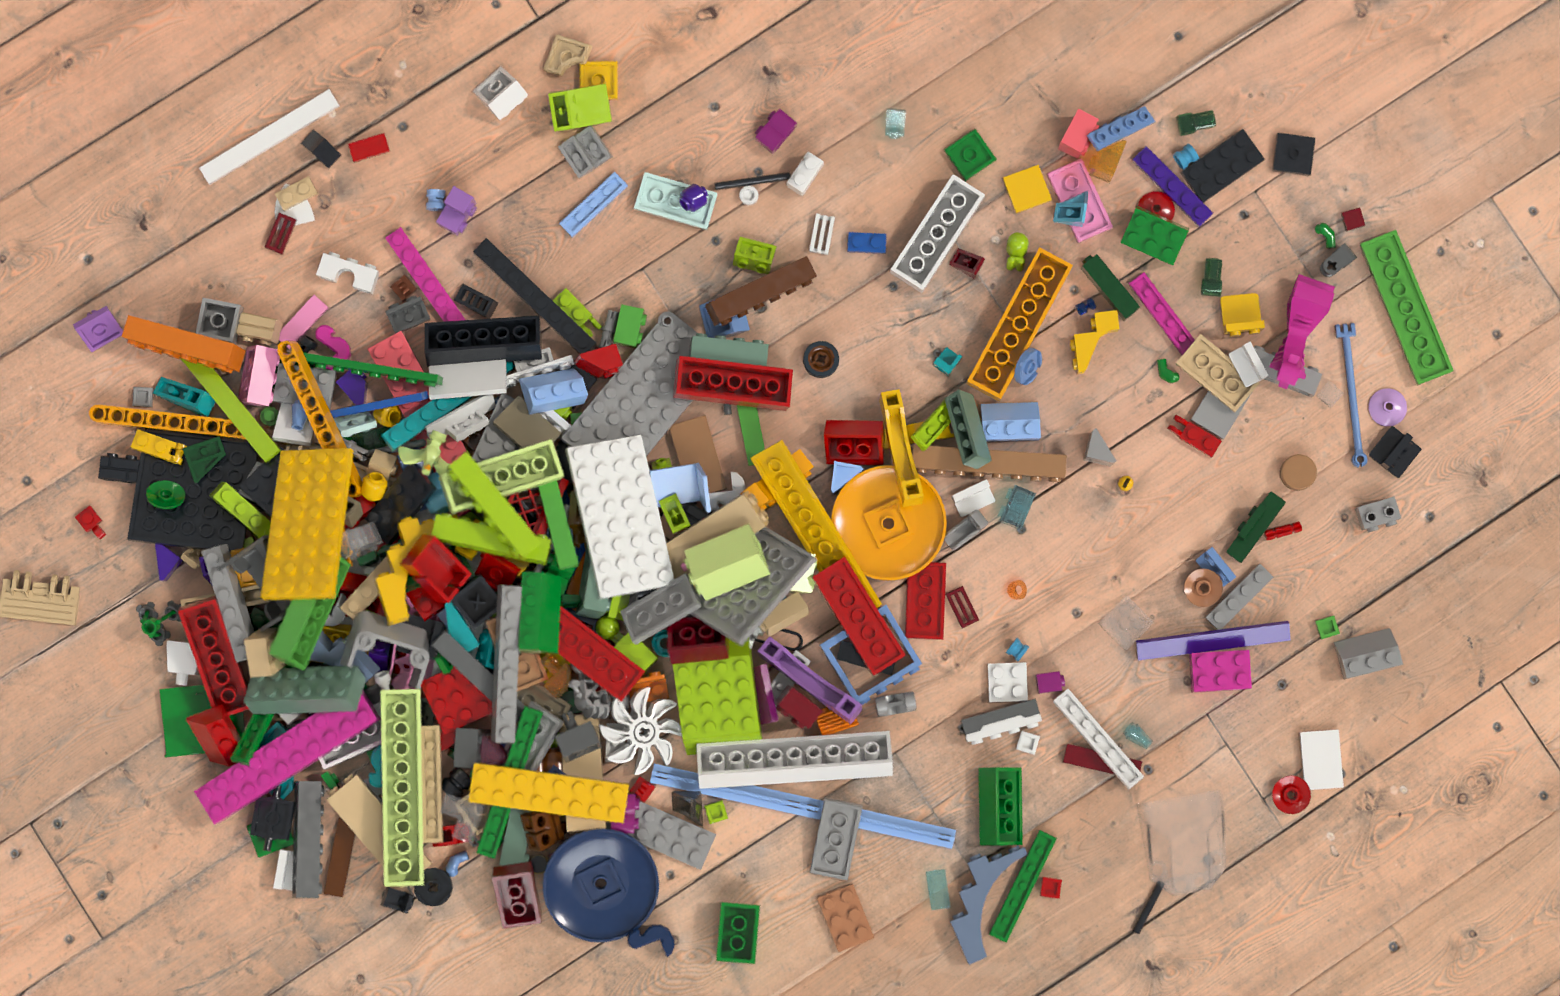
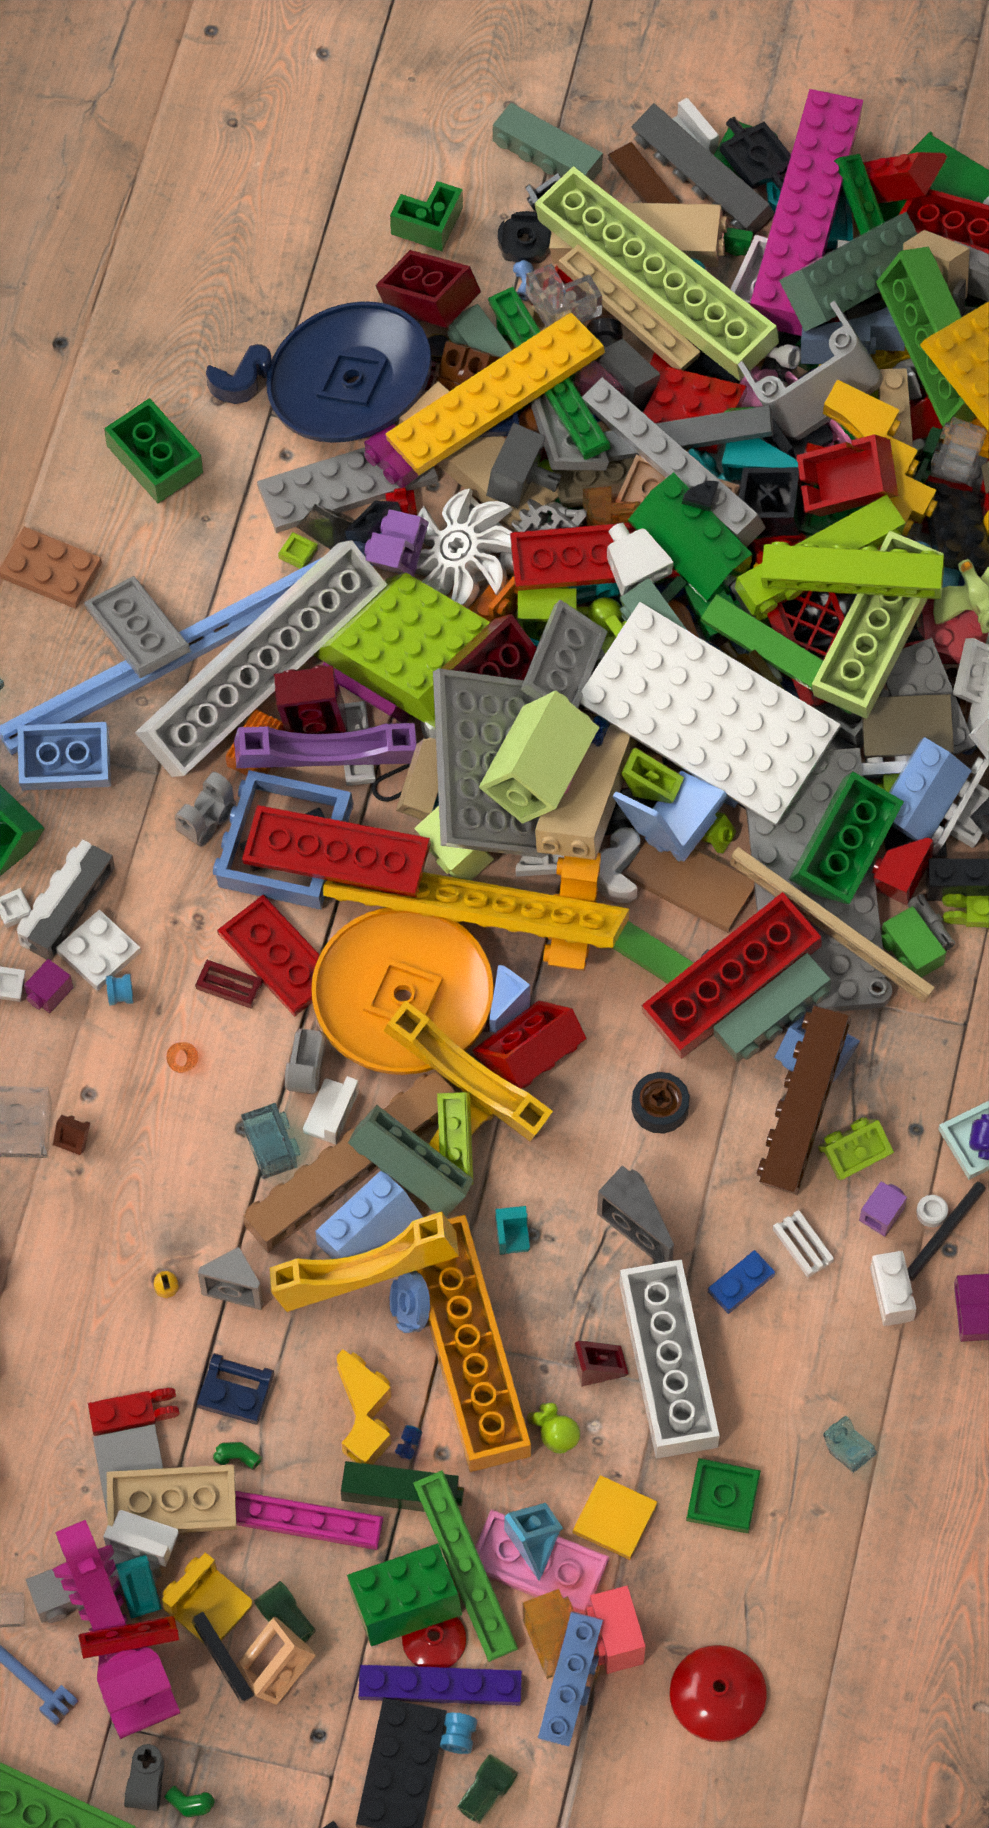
camera: 135 degrees right, 20 degrees down
(370, 930) = (544, 144): none -> sand green brick
(476, 939) = (428, 221): none -> green brick
(519, 621) = (701, 495): none -> black tile
(577, 627) = (636, 558): none -> white torso
(618, 394) = (846, 839): none -> green slope
(663, 364) = (833, 926): none -> tan tile
(669, 787) = (370, 521): none -> black plate
(674, 757) = (399, 544): none -> medium lavender brick
(675, 561) = (603, 726): none -> clear blue piece
(770, 215) = (883, 1208): none -> medium lavender brick
(887, 316) = (632, 1211): none -> flat silver slope
(936, 796) = (64, 756): none -> light blue brick
(1049, 407) = (312, 1281): none -> yellow arch
(1054, 85) = (718, 1714): none -> red dish
(1105, 596) = (71, 1134): none -> copper tile
(1115, 224) = (465, 1566): none -> bright green tile
(1145, 401) = (231, 1398): none -> dark blue plate
(1228, 250) = (283, 1668): none -> light nougat tile
(1258, 281) = (222, 1658): none -> black tile
(1267, 346) = (138, 1586): none -> teal tile
(1294, 324) = (128, 1637): none -> red tile

